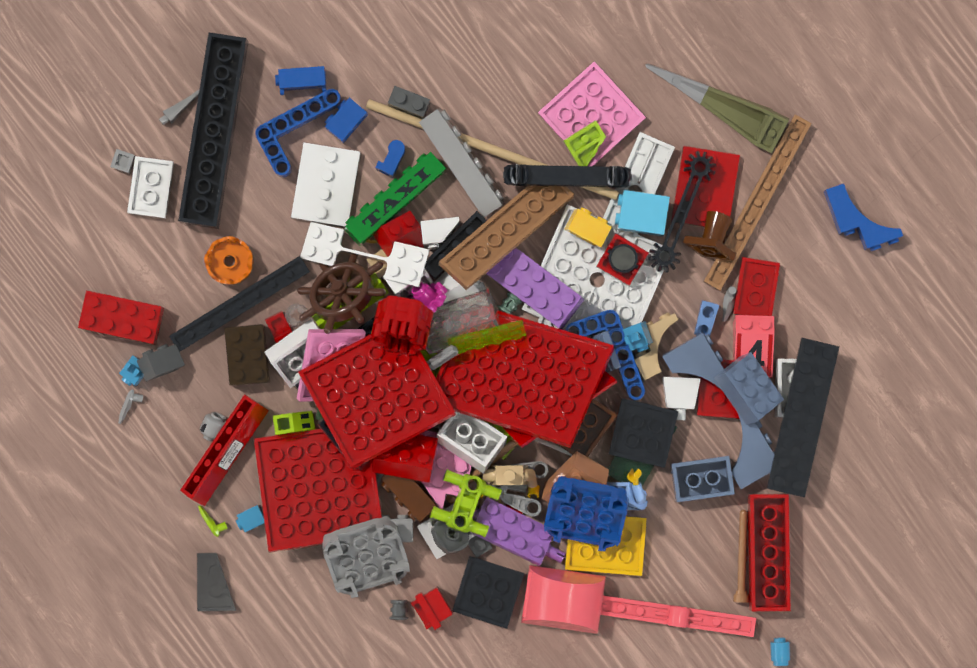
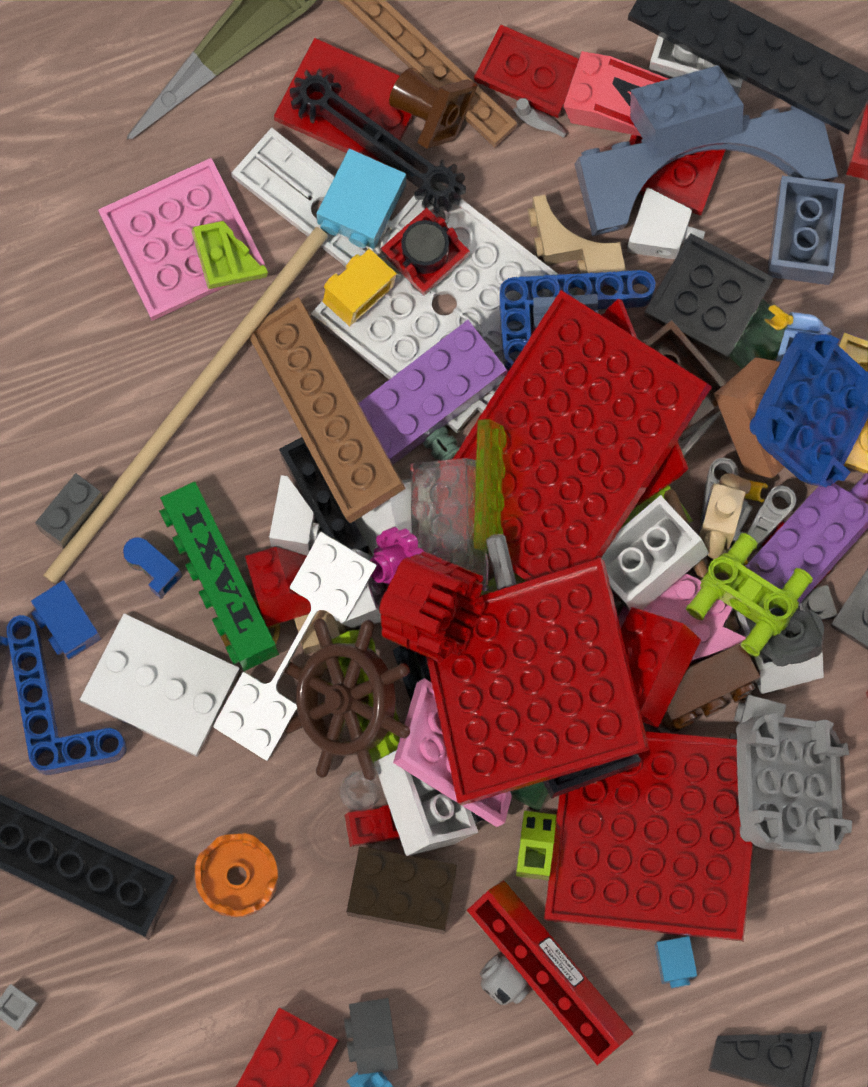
camera: 75 degrees left, 10 degrees down
(150, 187) = (73, 973): white plate -> none
(215, 529) = (665, 1032): lime bar -> none
(239, 303) = (313, 880): black plate -> none
(461, 162) = (193, 453): light grey brick -> none
(567, 176) = (266, 296): black arm -> none
(638, 336) = (555, 258): dark azure brick -> none
(706, 317) = (552, 156): medium blue leg -> none

